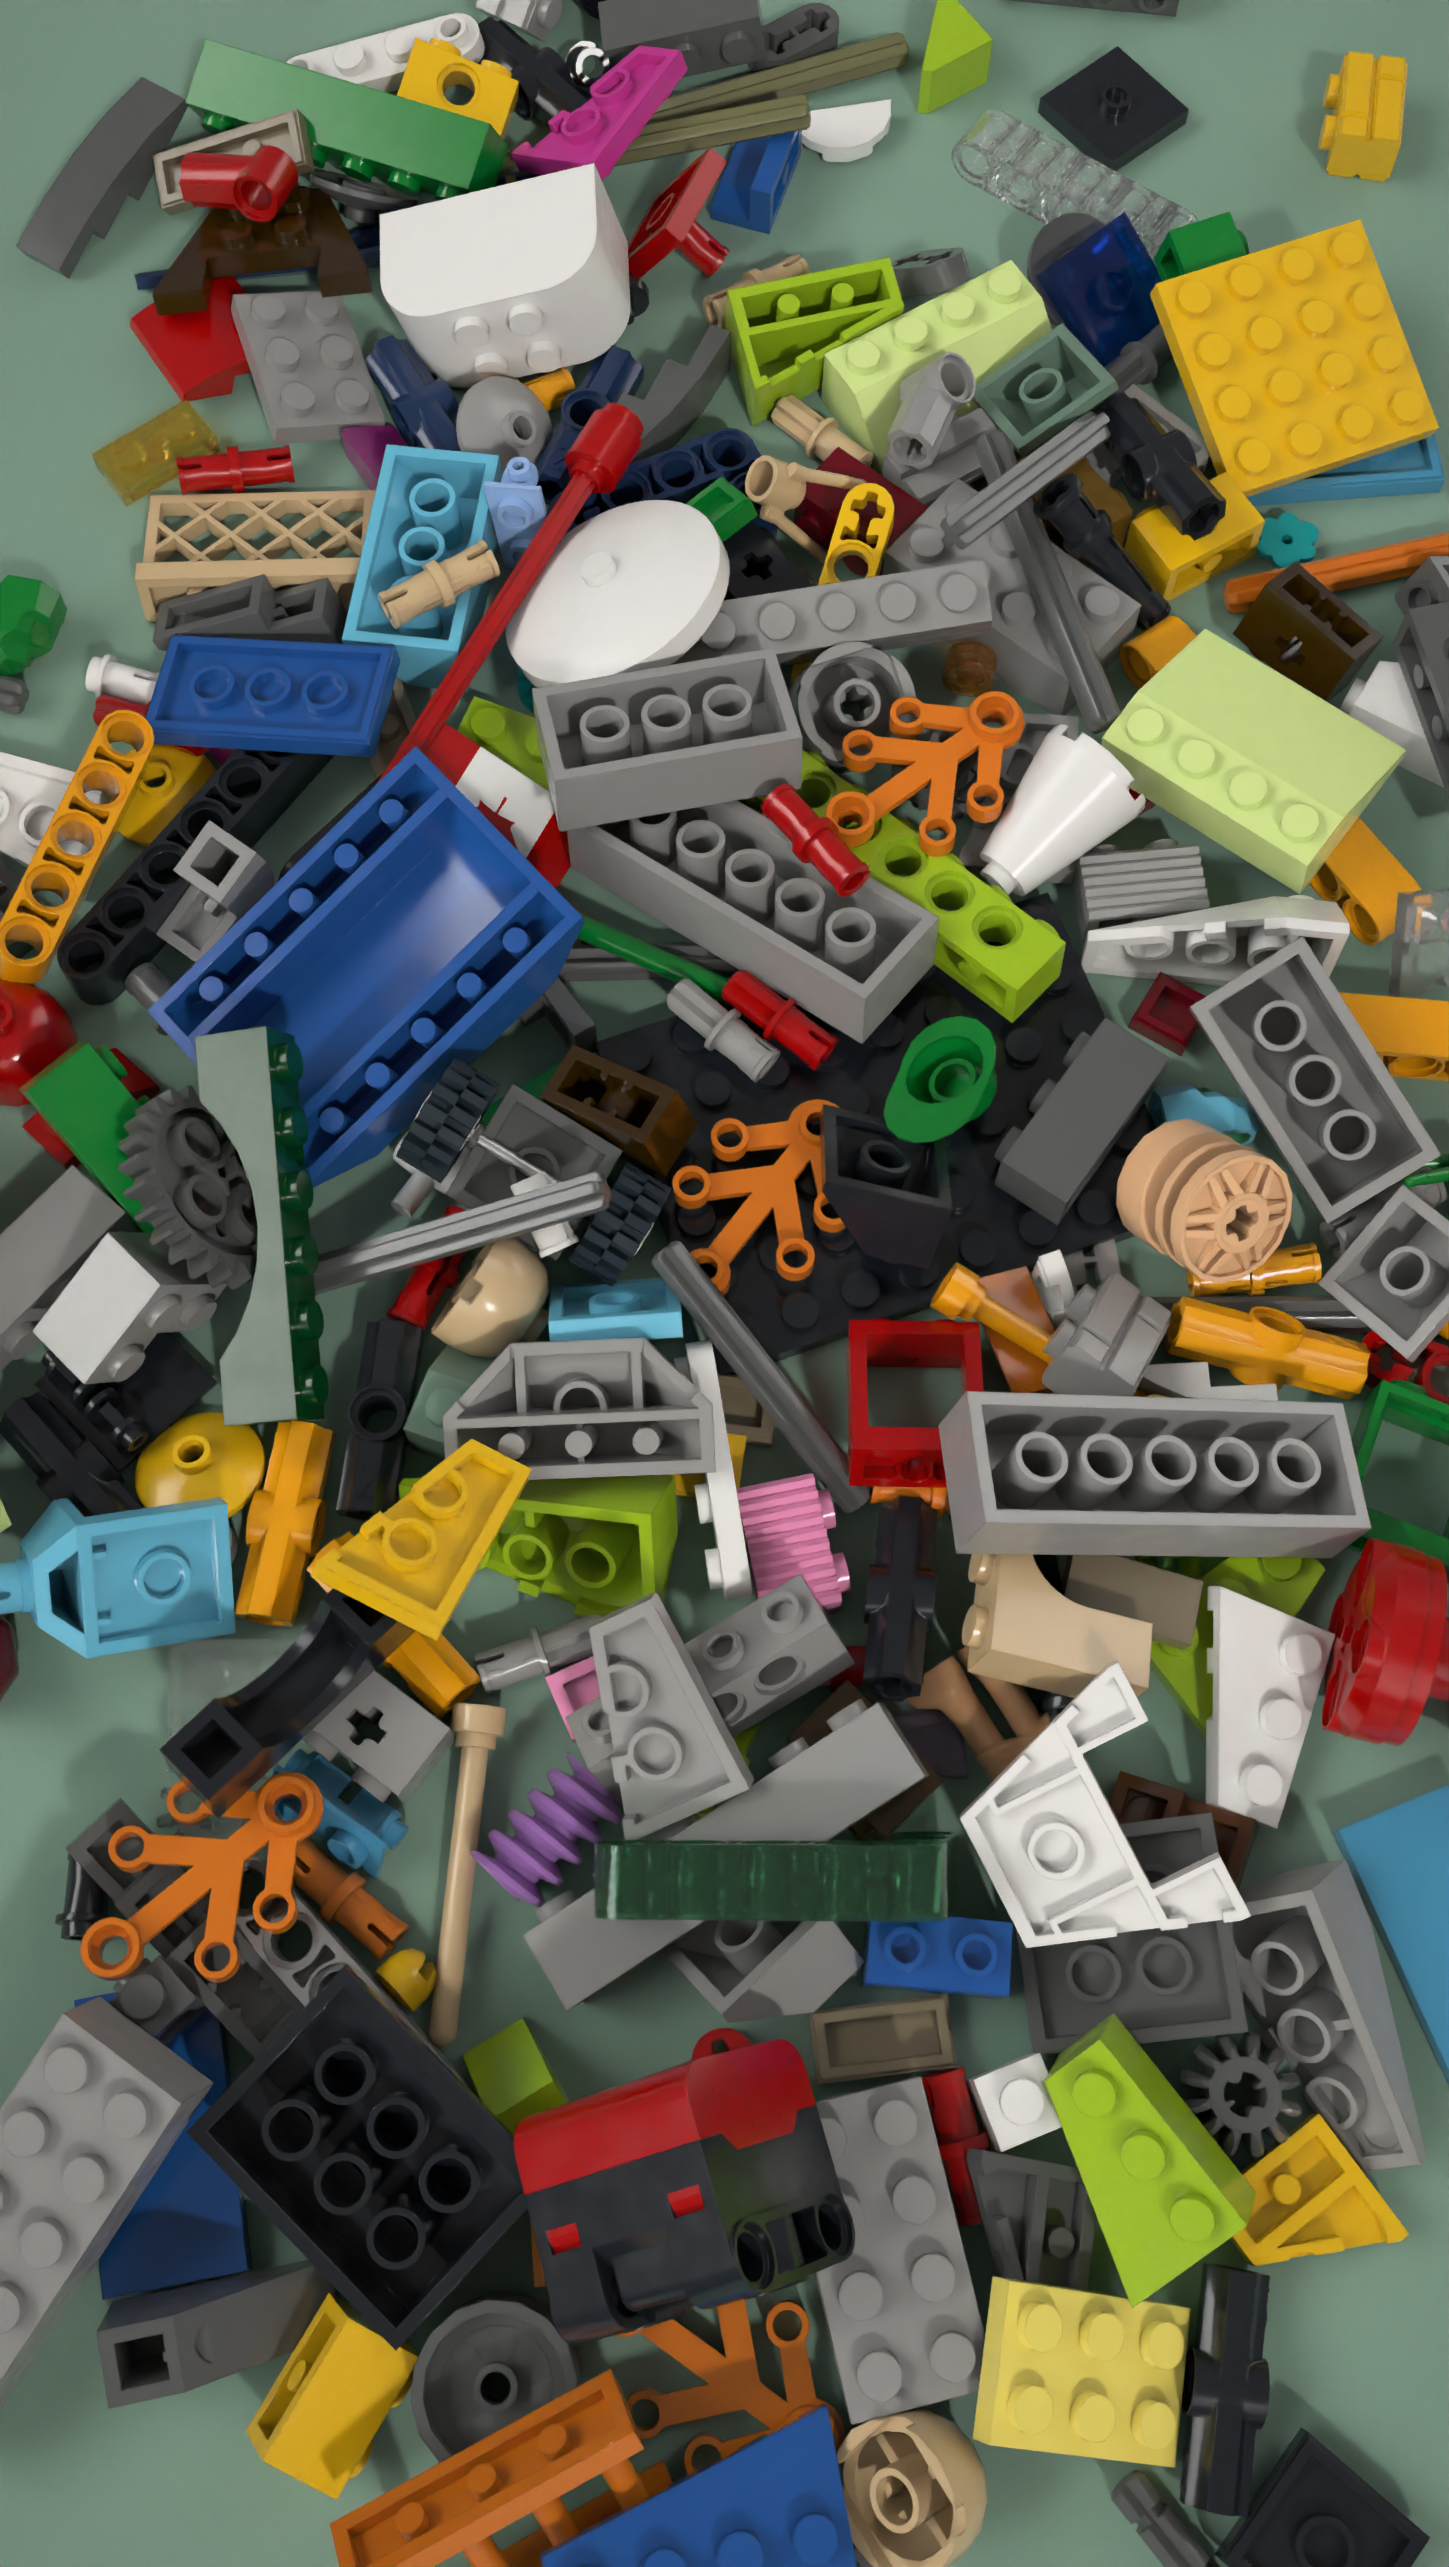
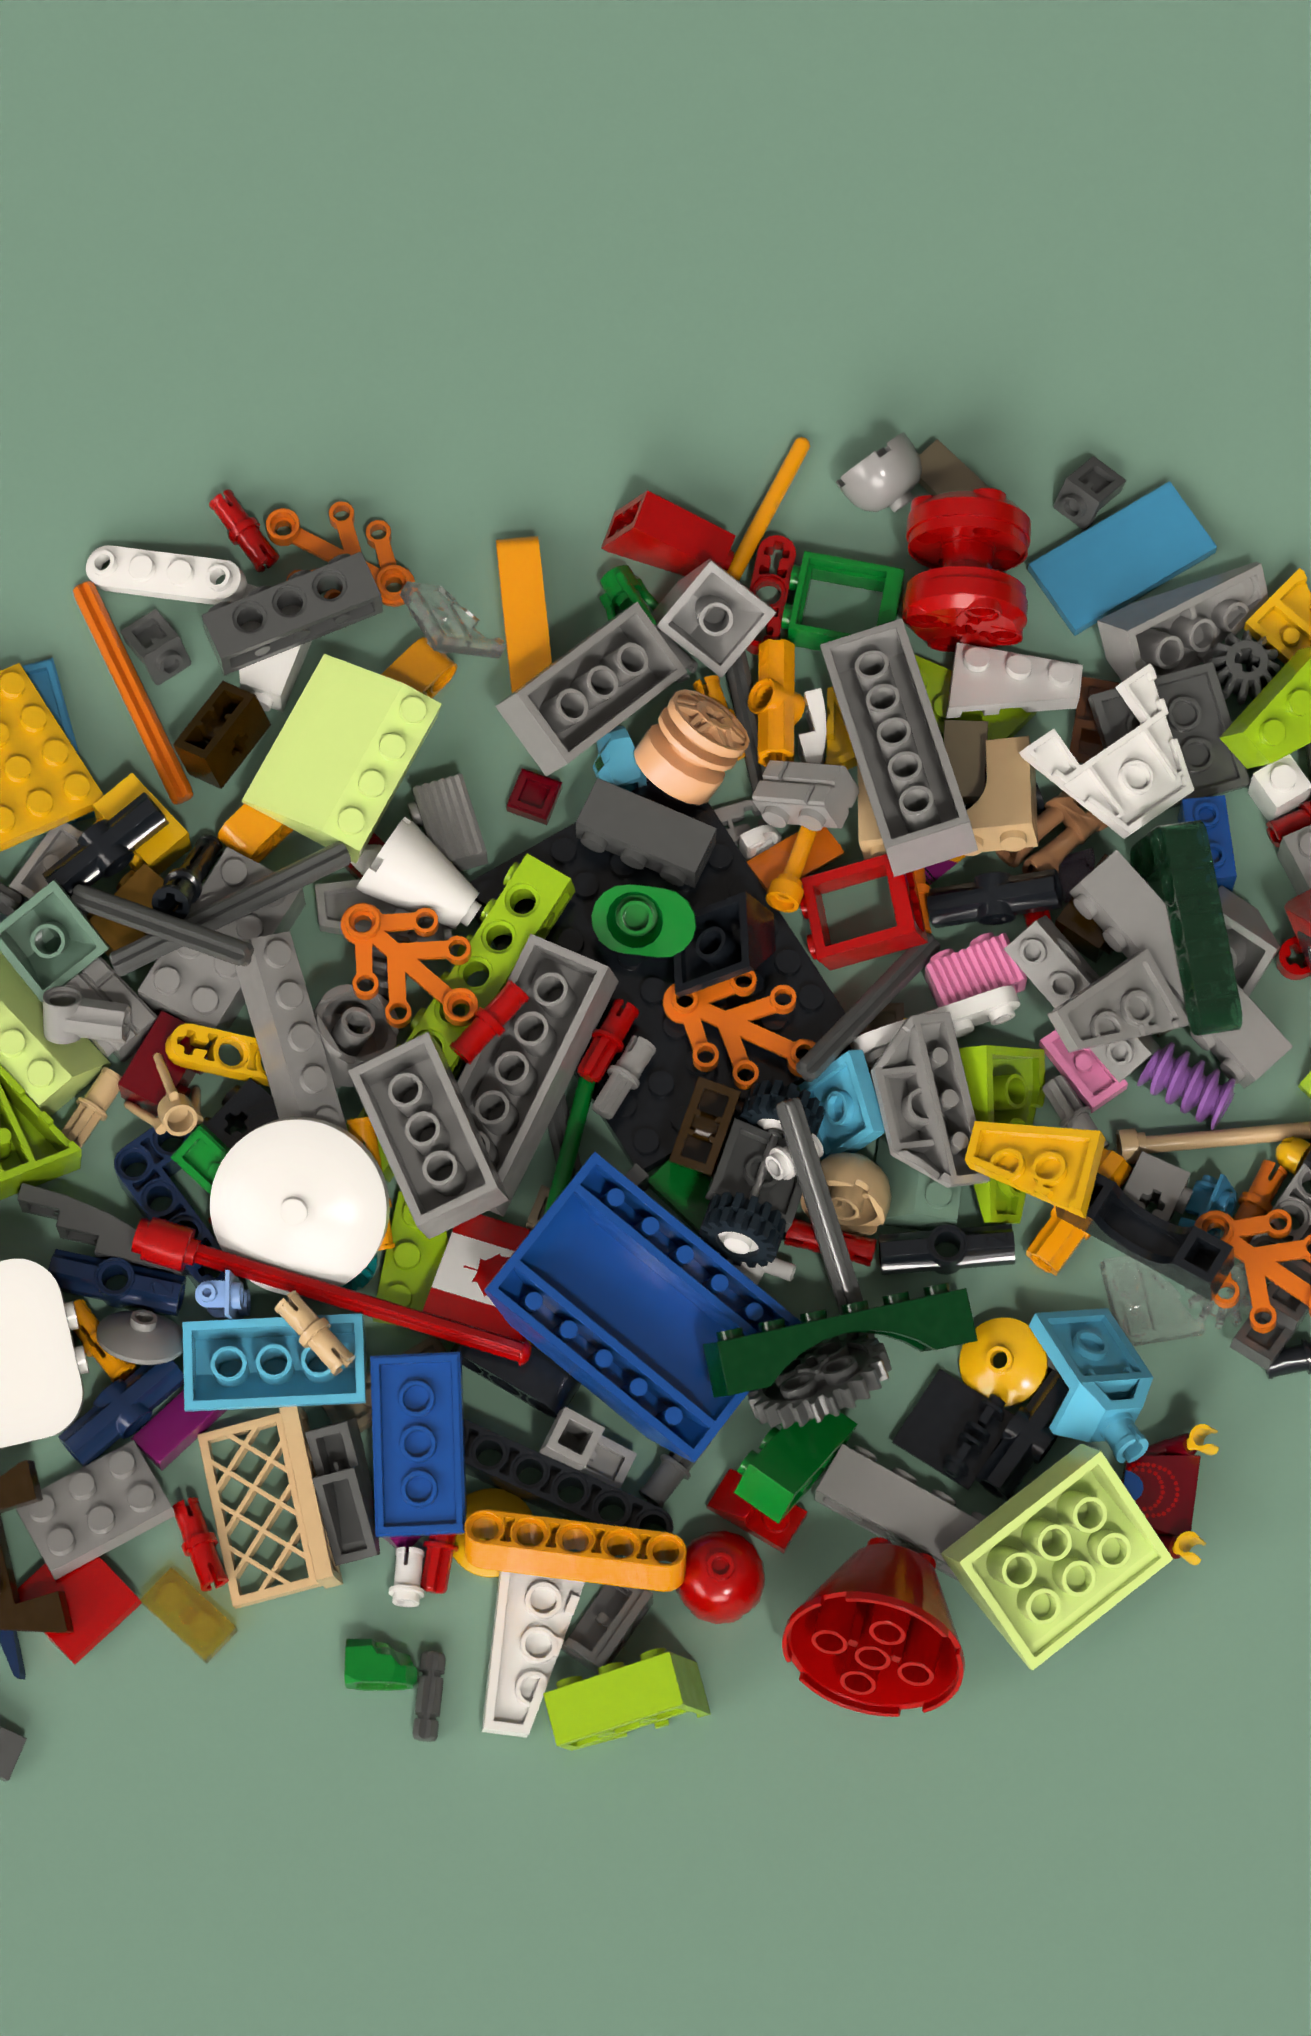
camera: 100 degrees left, 0 degrees up
(119, 1306) = (913, 1422): brick -> none
(285, 1524) = (1029, 1292): light orange piece -> none
(882, 2039) = (1261, 873): dark tan tile -> none
(1217, 941) = (476, 743): white wedge -> none
(1287, 540) = (122, 754): teal plant -> none

